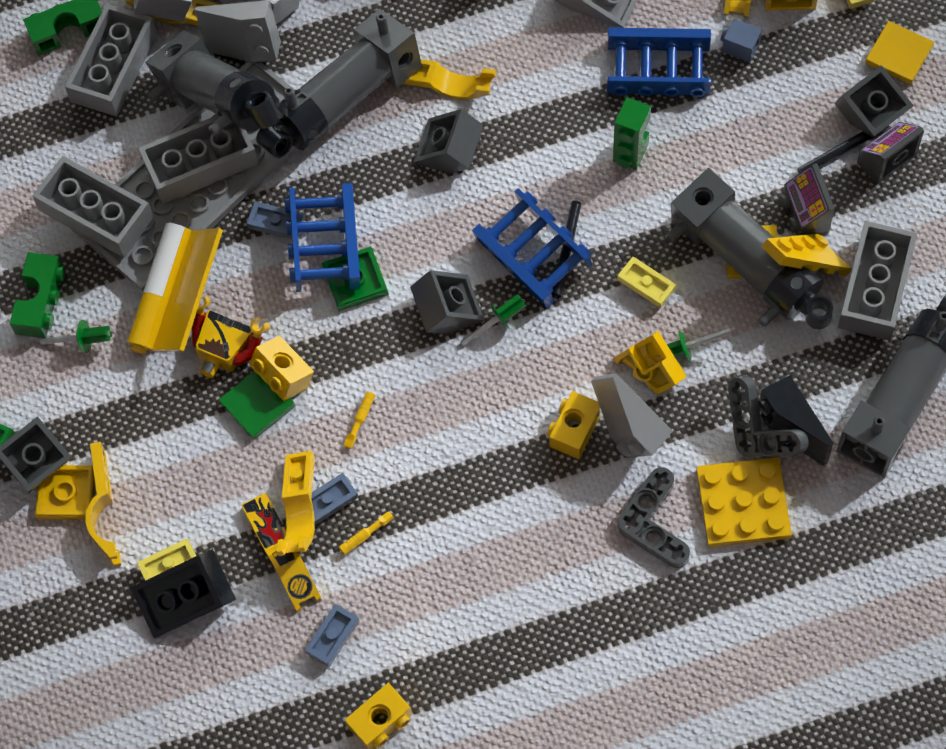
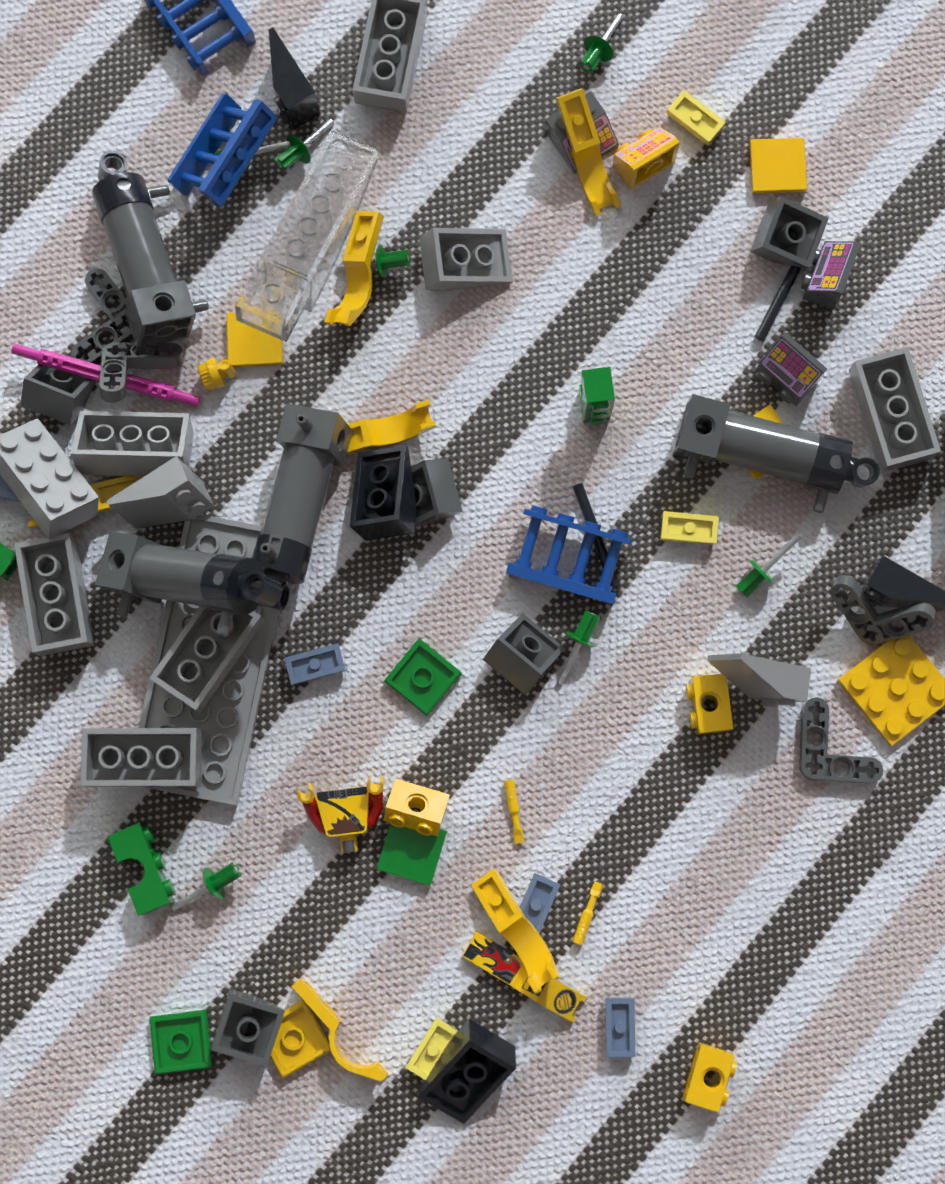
camera: 30 degrees left, 15 degrees up
(173, 289) = (273, 793): yellow door -> none
(346, 248) = (402, 657): blue fence -> none
(412, 123) = (383, 494): none -> black slope
(652, 363) = (743, 605): yellow slope -> none
(659, 39) = (568, 274): blue fence -> none
(741, 40) = (630, 235): sand blue brick -> none
(806, 251) = (823, 424): yellow wing -> none

